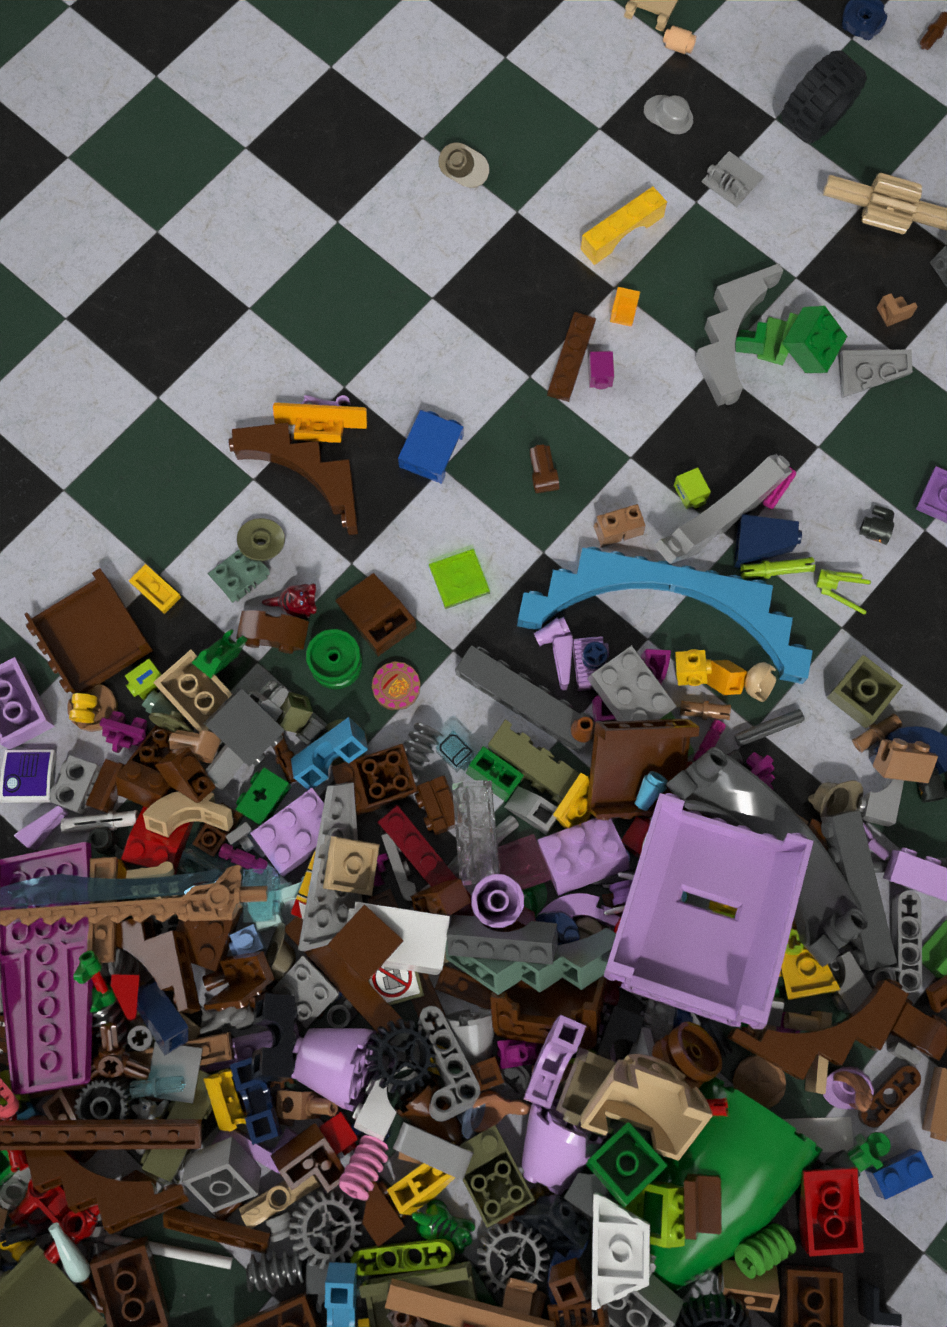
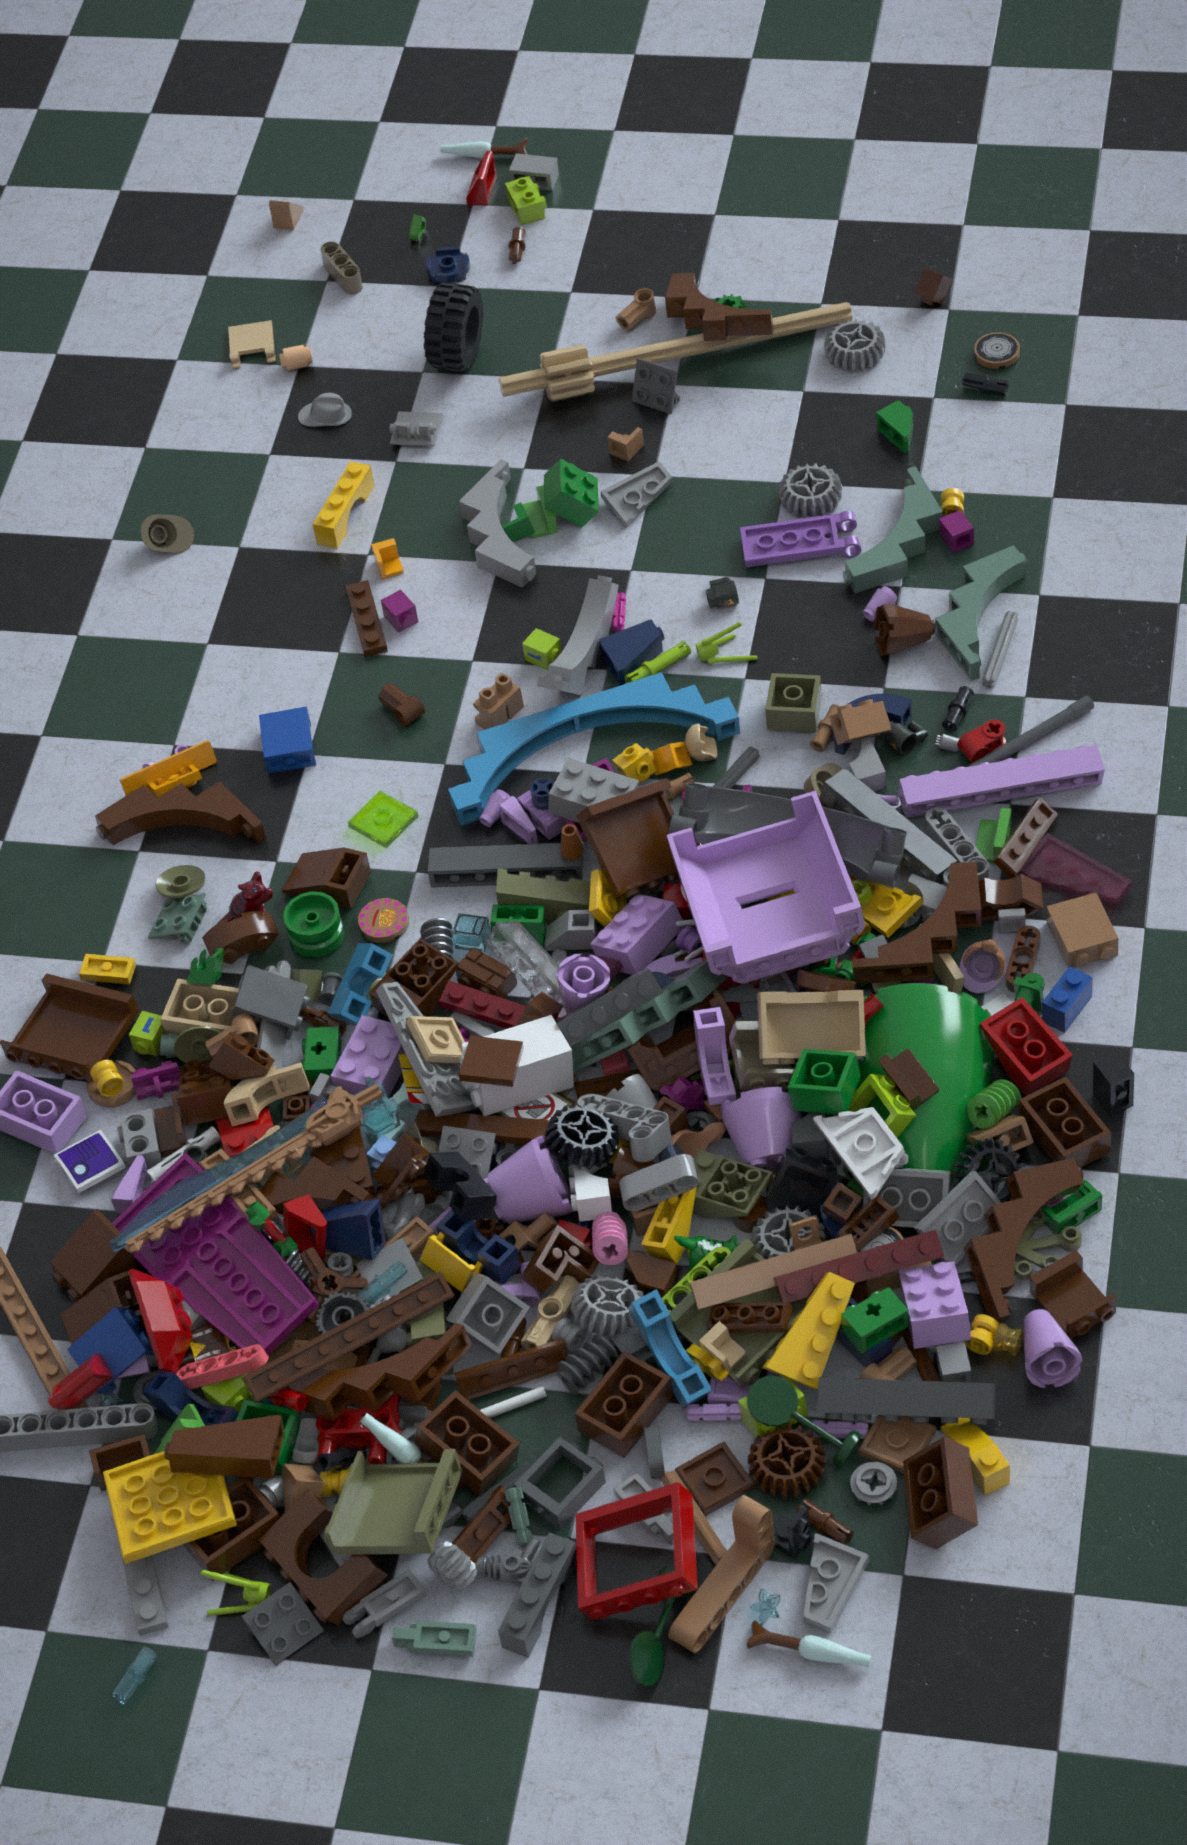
camera: 25 degrees left, 25 degrees down
(651, 787) = (659, 852): medium azure cone -> none

